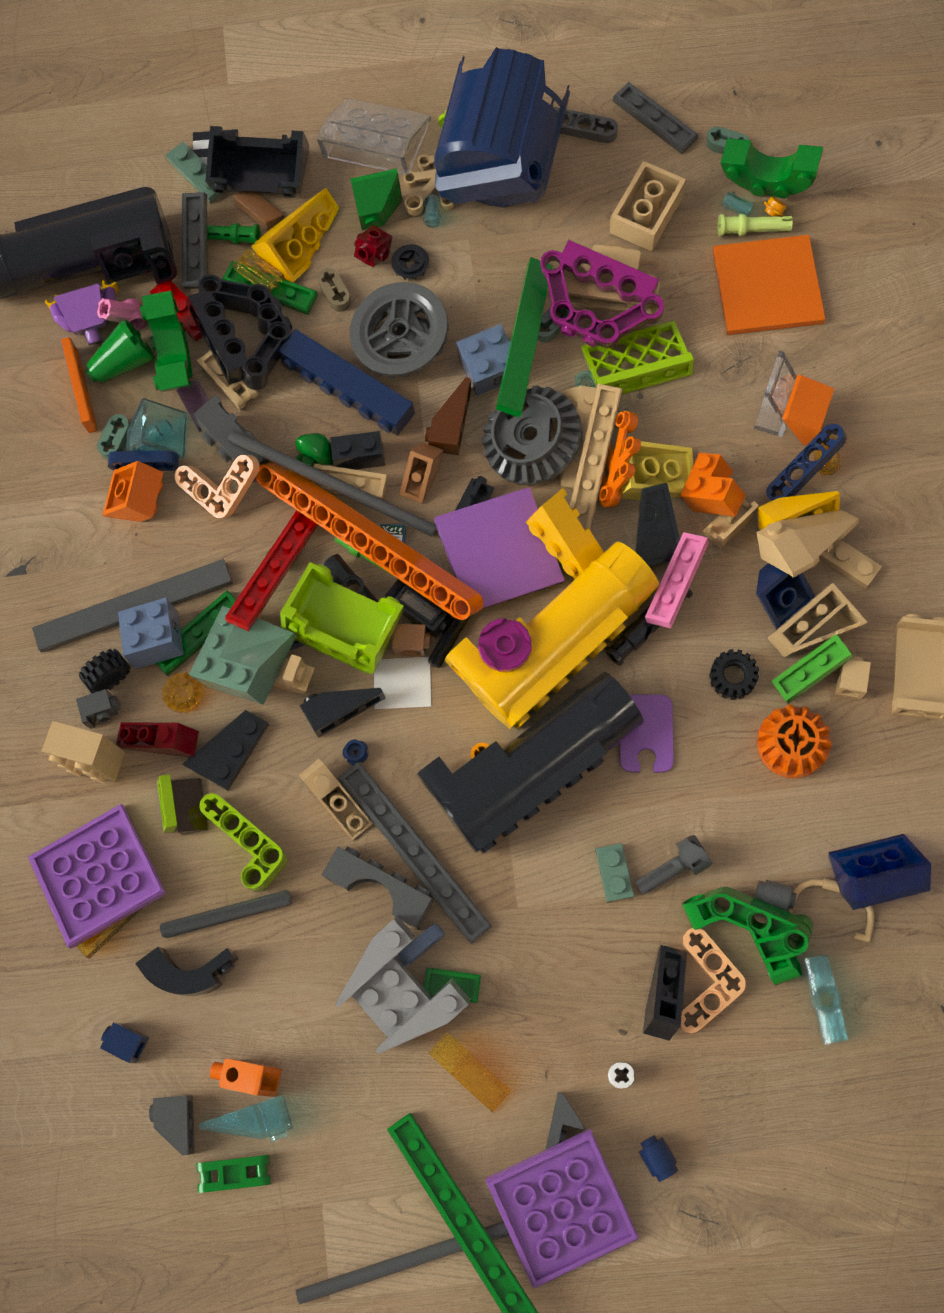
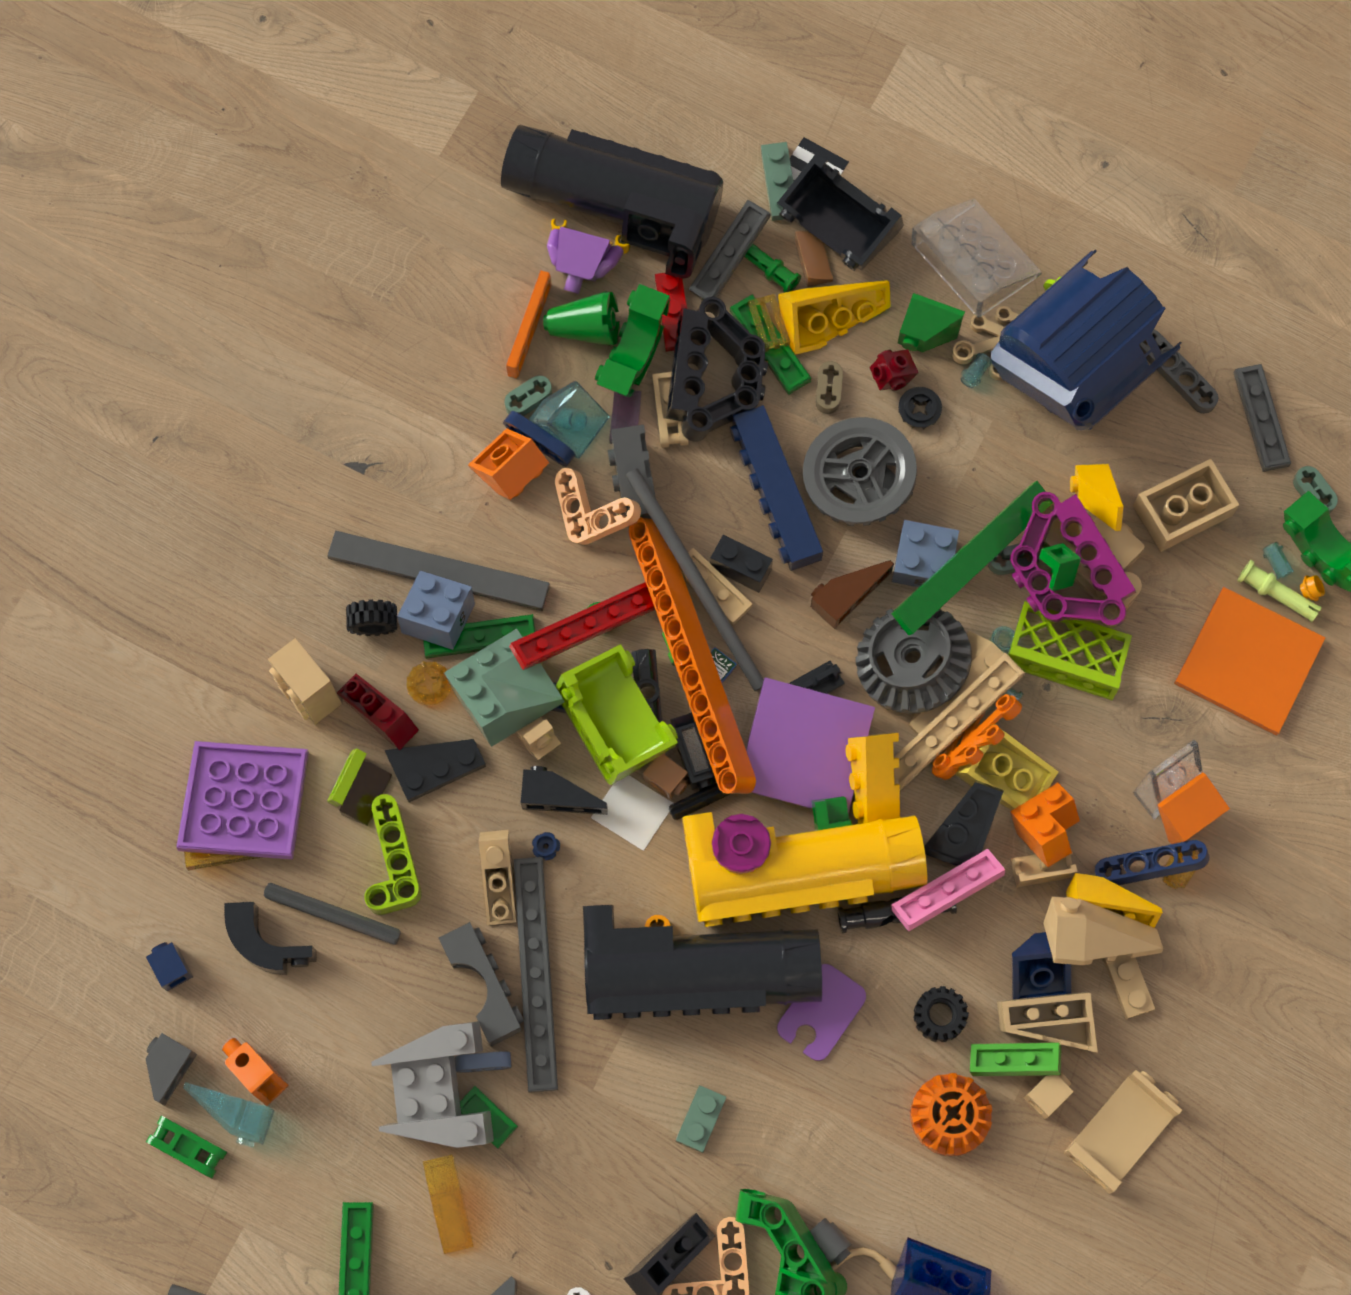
camera: 25 degrees right, 0 degrees up
(97, 707) = (344, 646): dark grey brick -> none
(120, 311) = (614, 279): bright pink piece -> none
(314, 448) = (702, 533): green piece -> none
(420, 471) = (786, 622): medium nougat slope -> none
(550, 584) = (830, 813): none -> green panel
(584, 232) = (1098, 493): none -> yellow slope
(594, 296) = (1063, 565): none -> green panel
(691, 857) = (777, 1152): dark grey piece -> none

